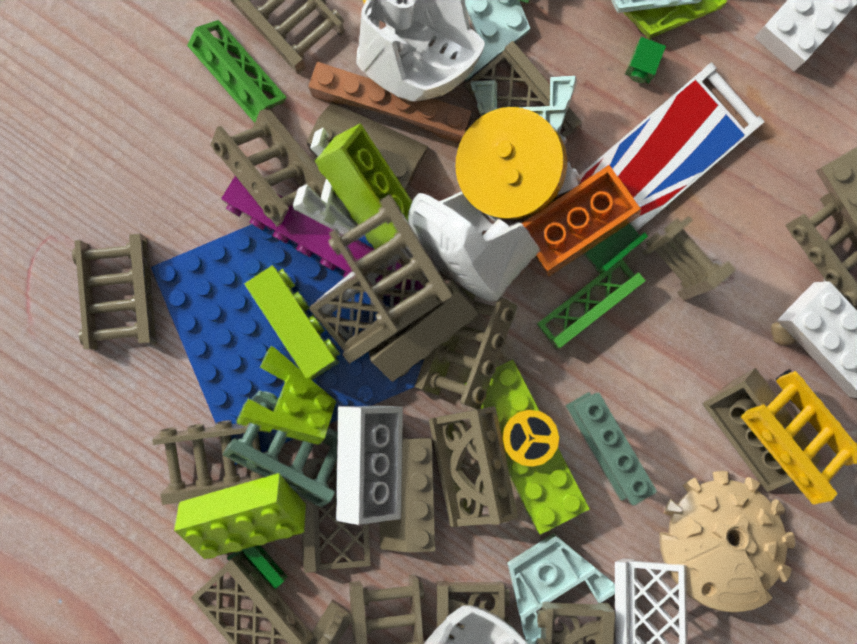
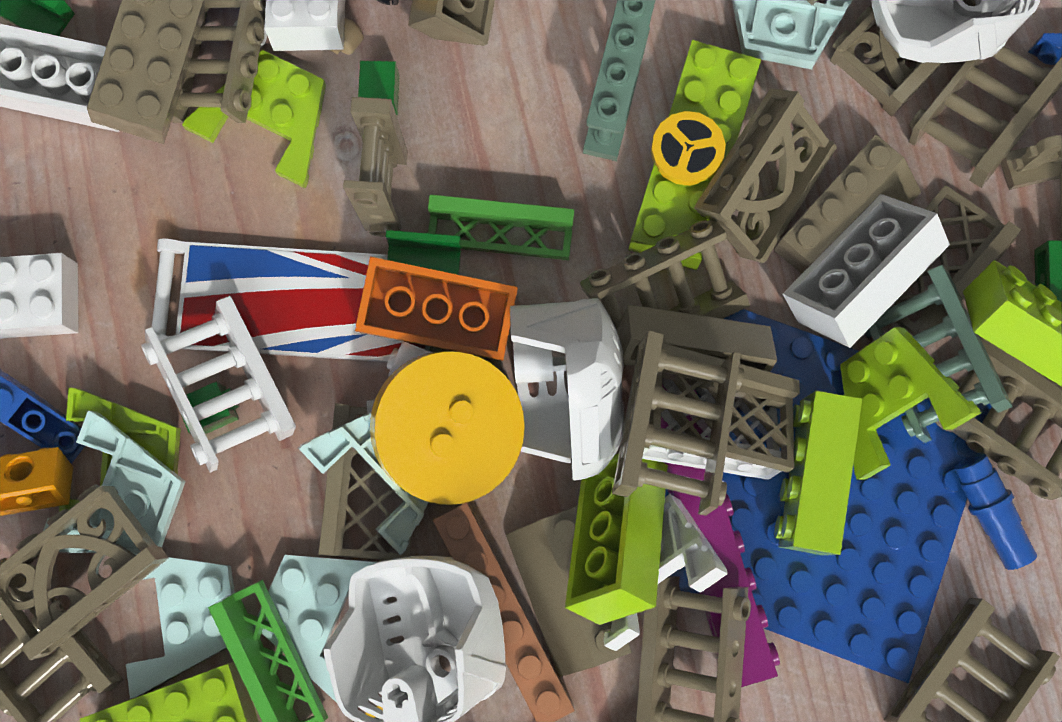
camera: 130 degrees left, 5 degrees down
(183, 398) = (995, 511): none -> blue piece
(656, 101) = (241, 354): none -> white fence
(734, 316) = (379, 80): none -> green brick
(776, 261) = (281, 101): none -> lime wing

